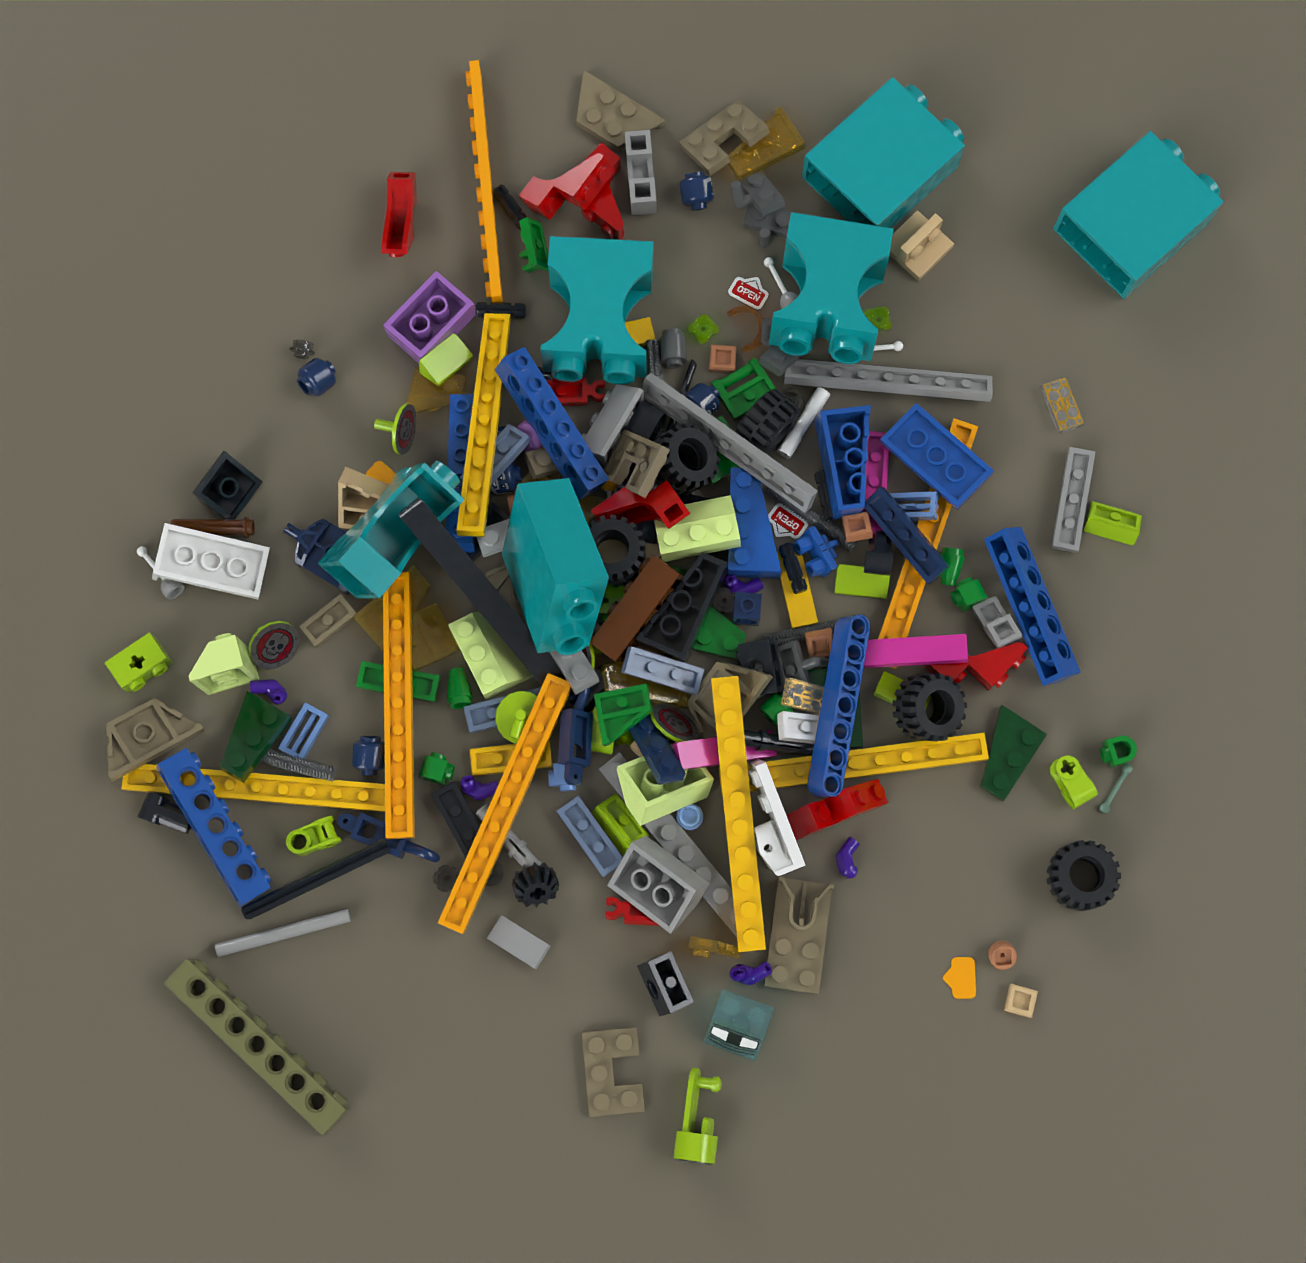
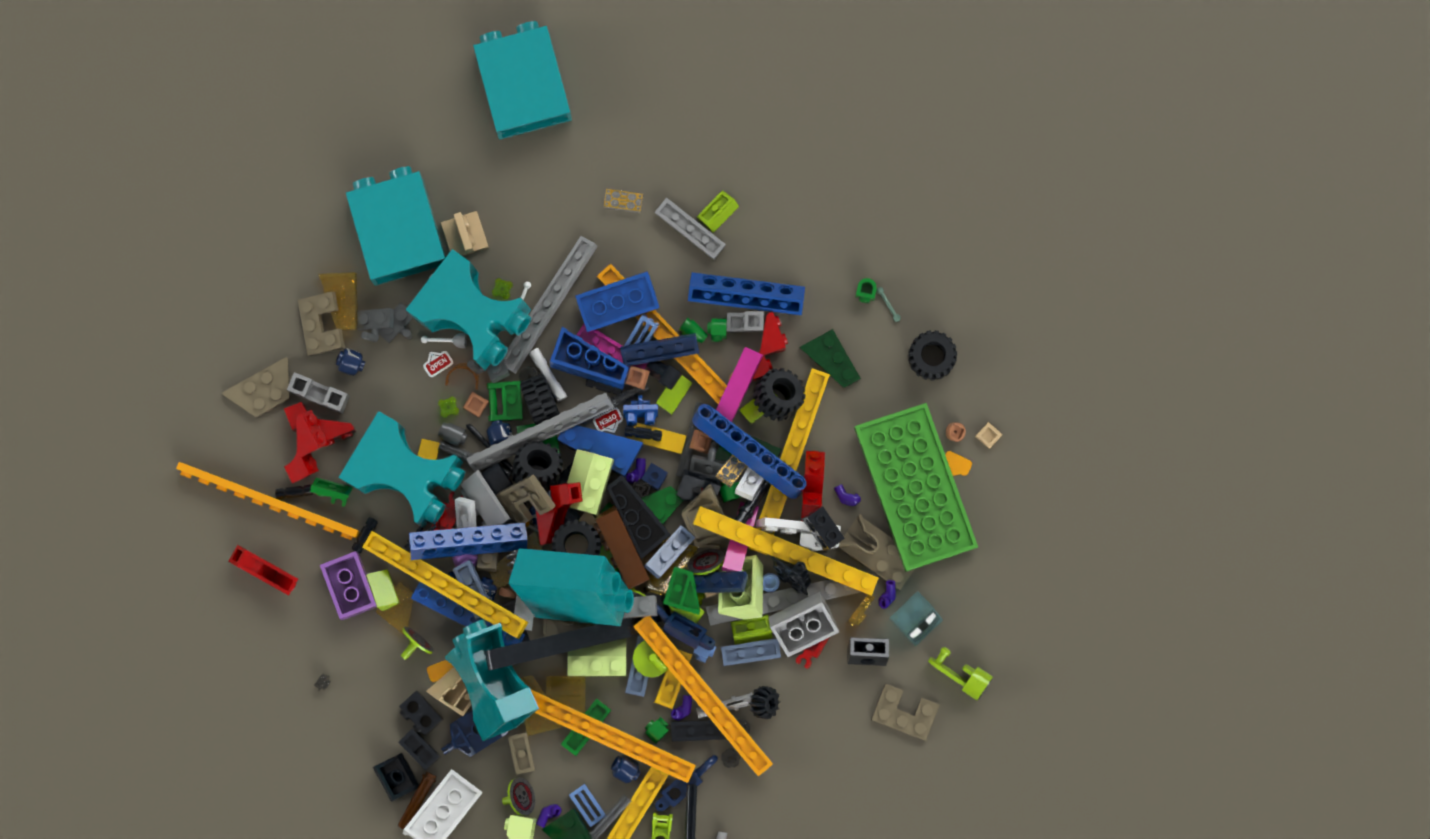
camera: 65 degrees left, 5 degrees up
(274, 497) = (419, 749): none -> black brick
(316, 377) = (348, 681): dark blue head -> none
(326, 479) = (424, 709): none -> black brick
(458, 689) = (612, 690): green cone -> none
(518, 942) = (794, 731): light grey slope -> none
(585, 406) = (465, 513): none -> white plate
(714, 842) = (797, 576): none -> black hinge
(790, 843) = (823, 528): none -> black brick
(904, 940) = (915, 487): none -> bright green plate
(1074, 783) = (873, 329): lime piece -> none

